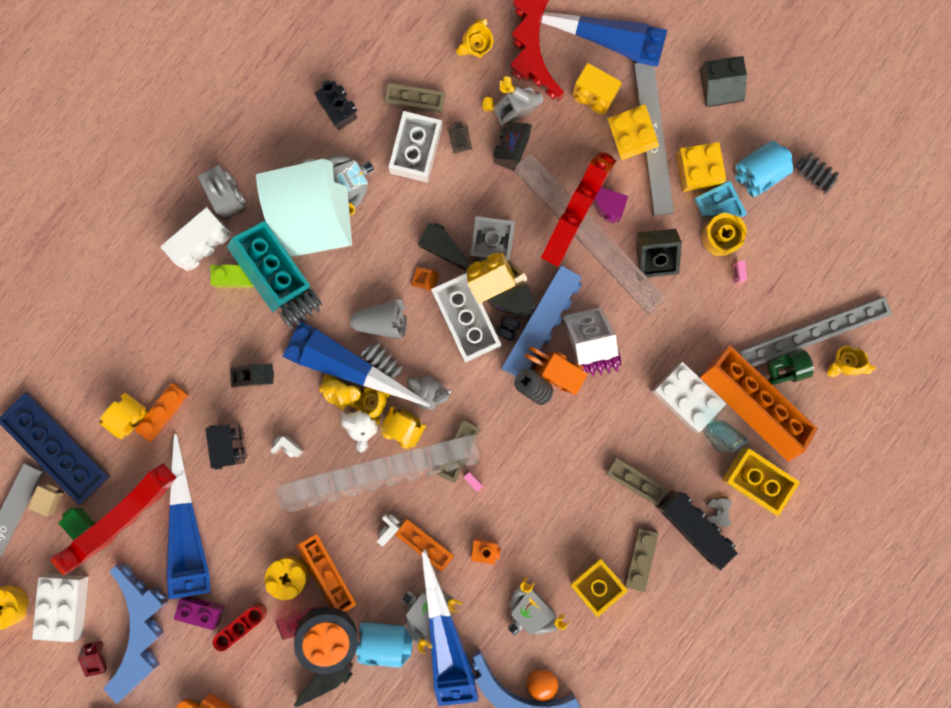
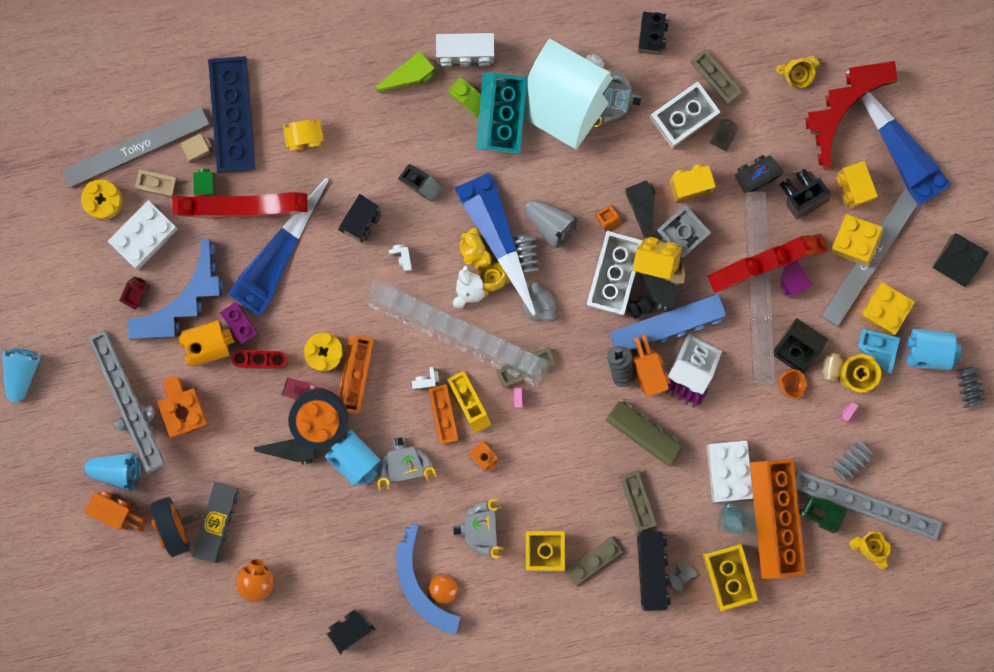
camera: 40 degrees right, 0 degrees up
(36, 555) = (155, 183): none -> tan plate
(161, 412) = (331, 154): orange plate -> none
(170, 295) = (410, 73): none -> lime slope
(183, 653) = (213, 341): none -> light orange cylinder
(222, 192) = (512, 29): light grey brick -> none
(300, 308) = (498, 163): dark grey piece -> none
(402, 427) = (500, 315): yellow brick -> none
(437, 517) = (469, 402): none -> yellow slope
(451, 668) = (387, 520): blue plate -> none
(466, 195) = (691, 183): none -> yellow brick
(515, 104) = (786, 145): light grey torso -> none
(566, 133) = (807, 198): none -> black brick
(596, 425) = (643, 433): none -> olive slope
(678, 287) = (792, 384): none -> orange hair
(697, 247) = (832, 367): none -> tan brick
(775, 308) = (851, 461): none -> light grey piece

